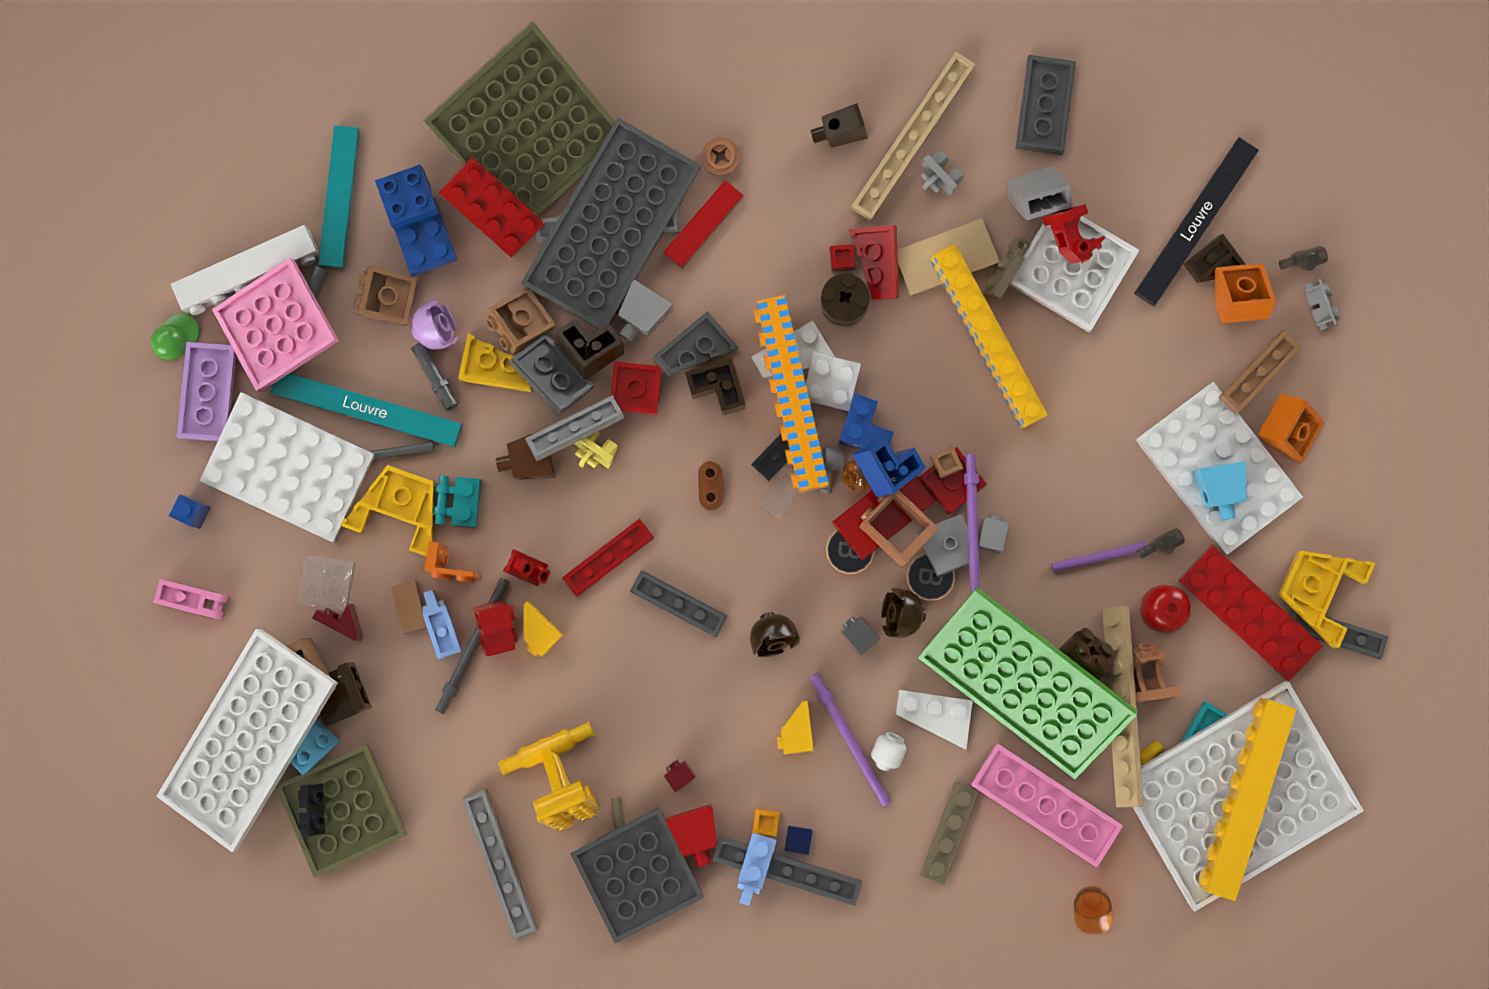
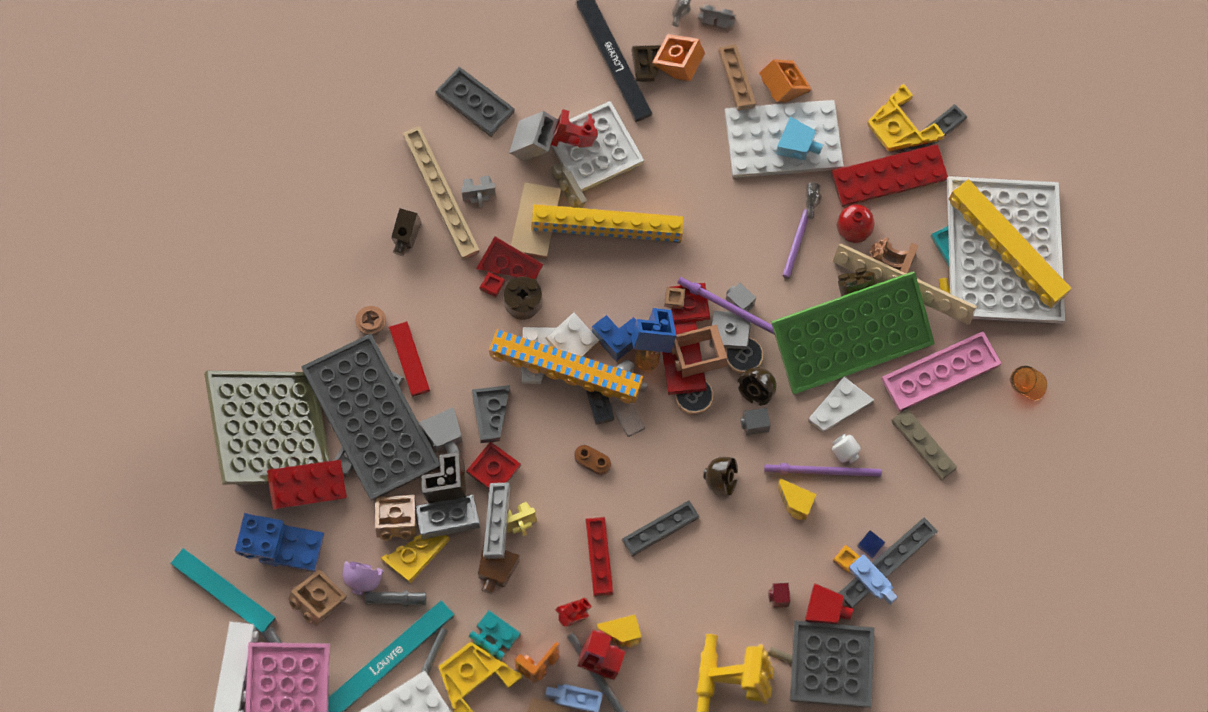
camera: 60 degrees left, 15 degrees down
(717, 379) = (528, 407): dark brown brick -> none

